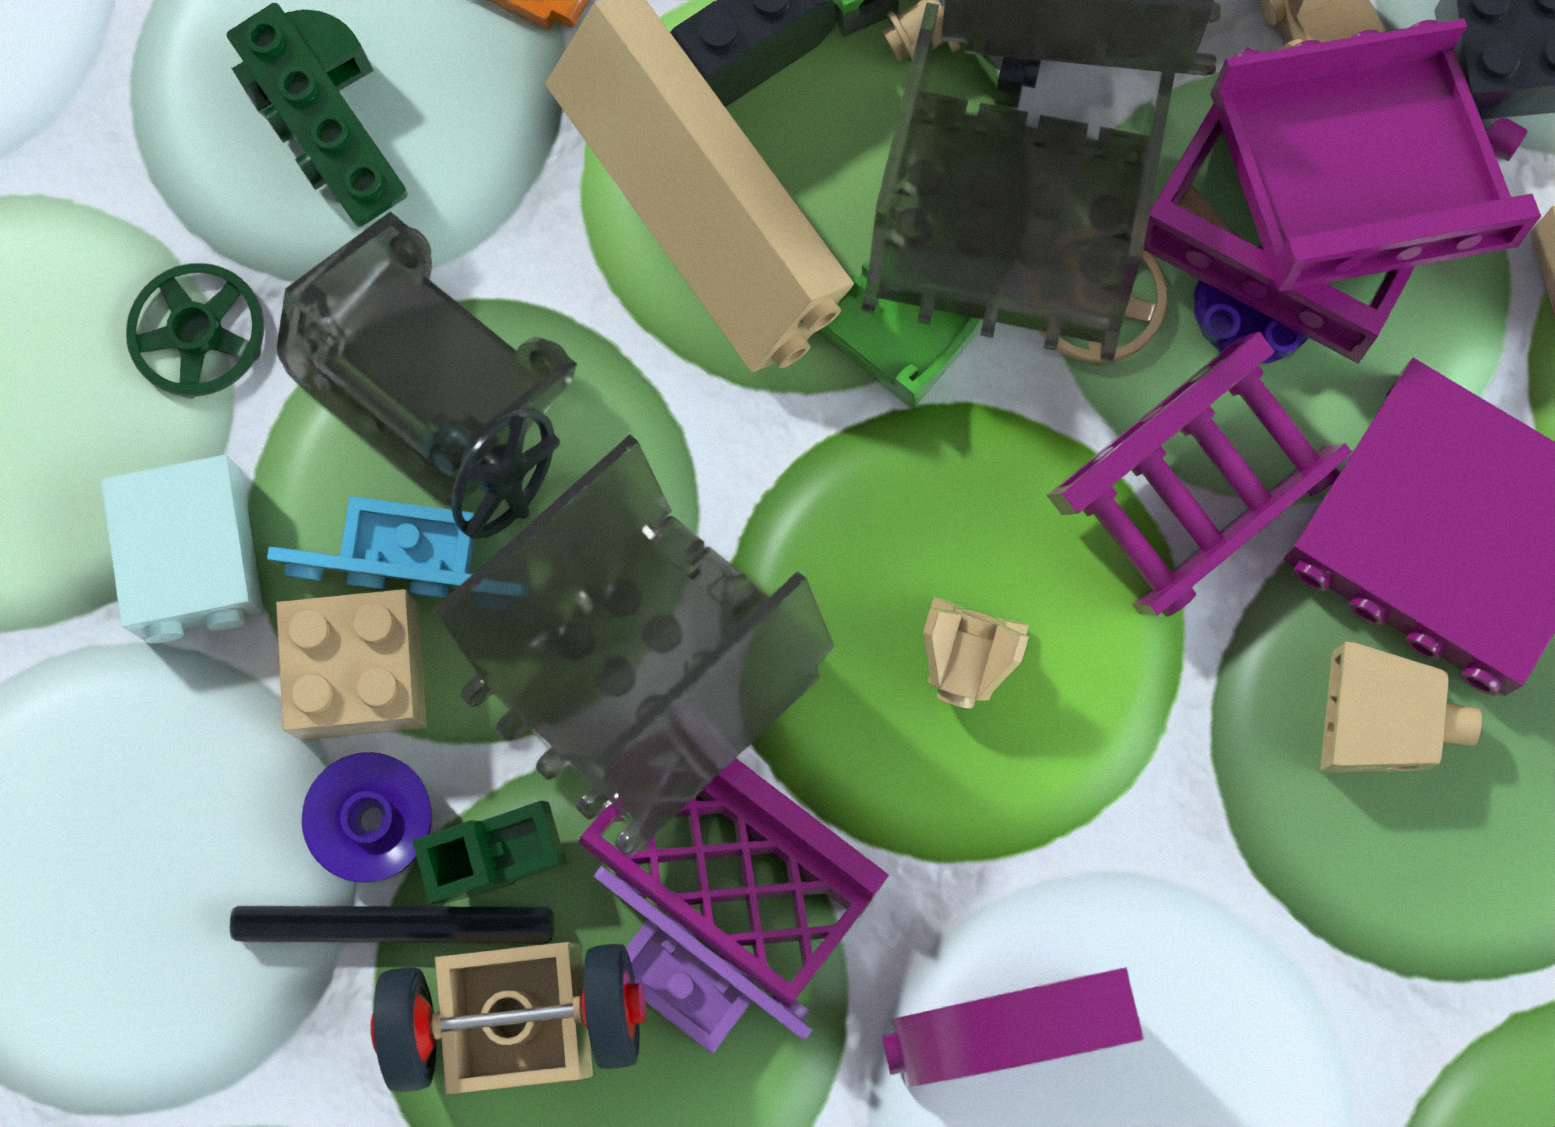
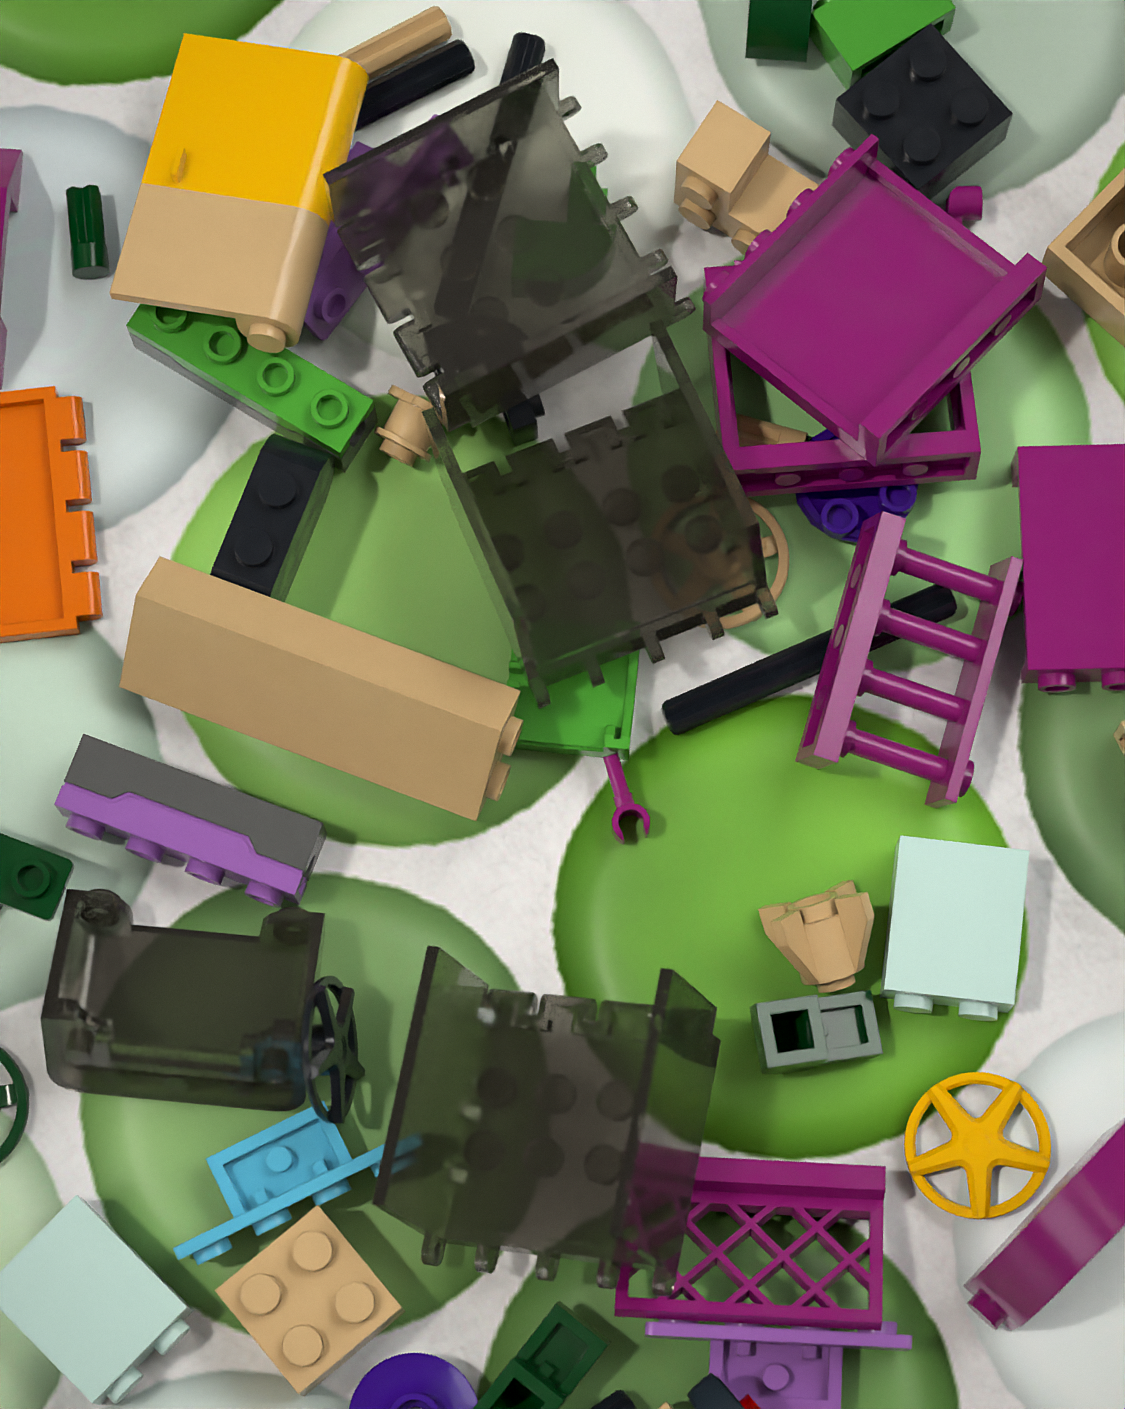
camera: 40 degrees left, 0 degrees up
(528, 225) = (191, 821): none -> piece
(884, 434) = (623, 798): none -> magenta hand
(908, 725) = (815, 1031): none -> brick
(982, 912) = (978, 1145): none -> yellow wheel
(1086, 718) = (954, 927): none -> light aqua brick
(1095, 418) = (786, 667): none -> black axle

